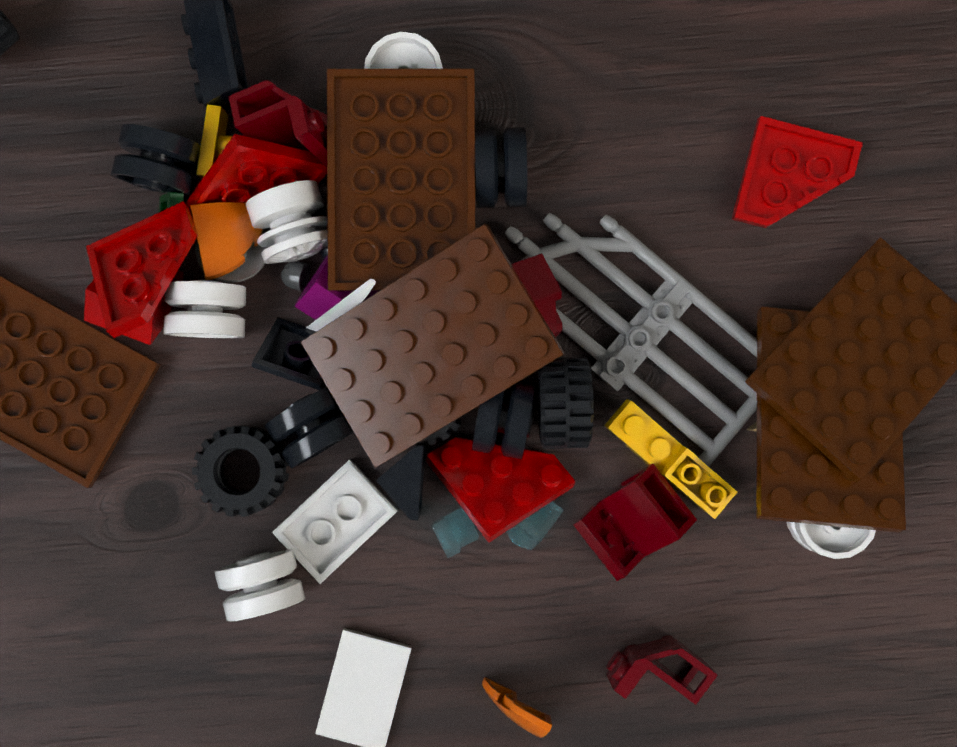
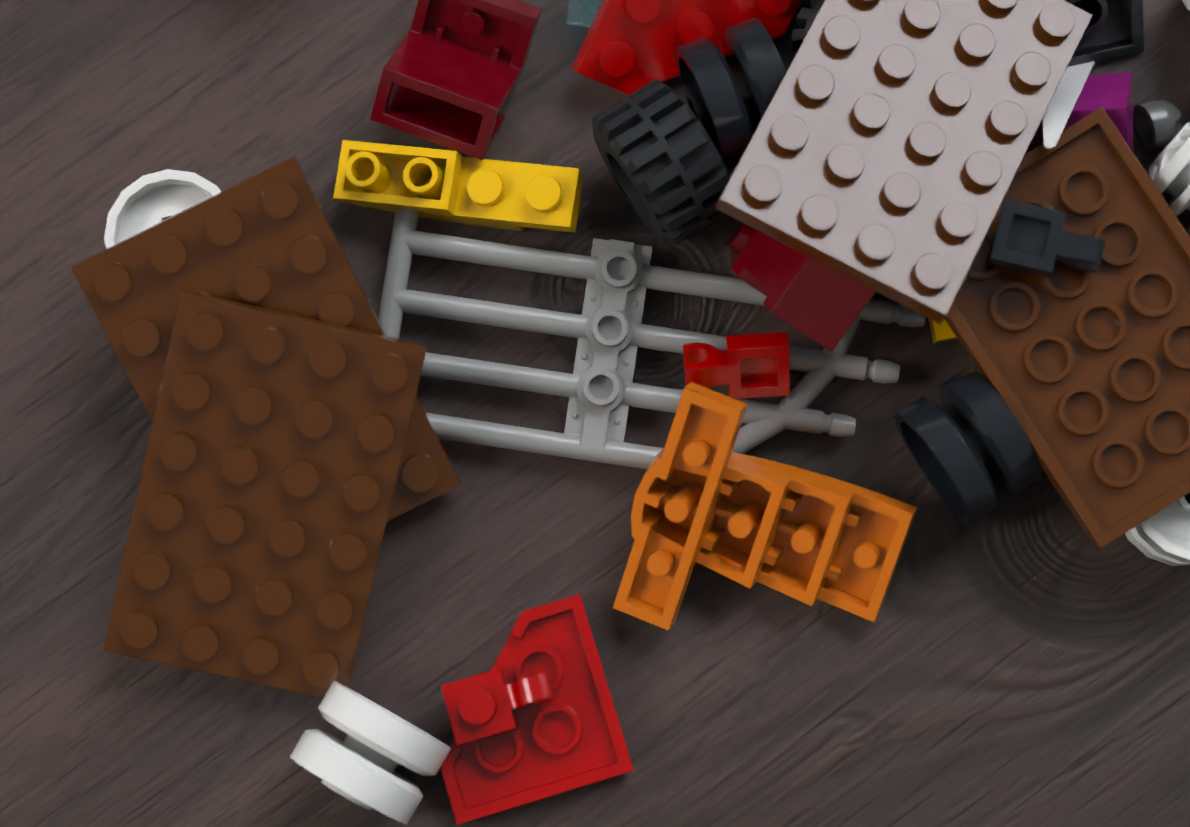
camera: 150 degrees right, 5 degrees down
(409, 240) = (1033, 238): none -> black plate
(586, 275) = (749, 367): none -> red plate
(629, 199) = (753, 522): none -> orange slope
(815, 188) = (486, 705): none -> red plate
(889, 199) = (366, 760): none -> white wheel

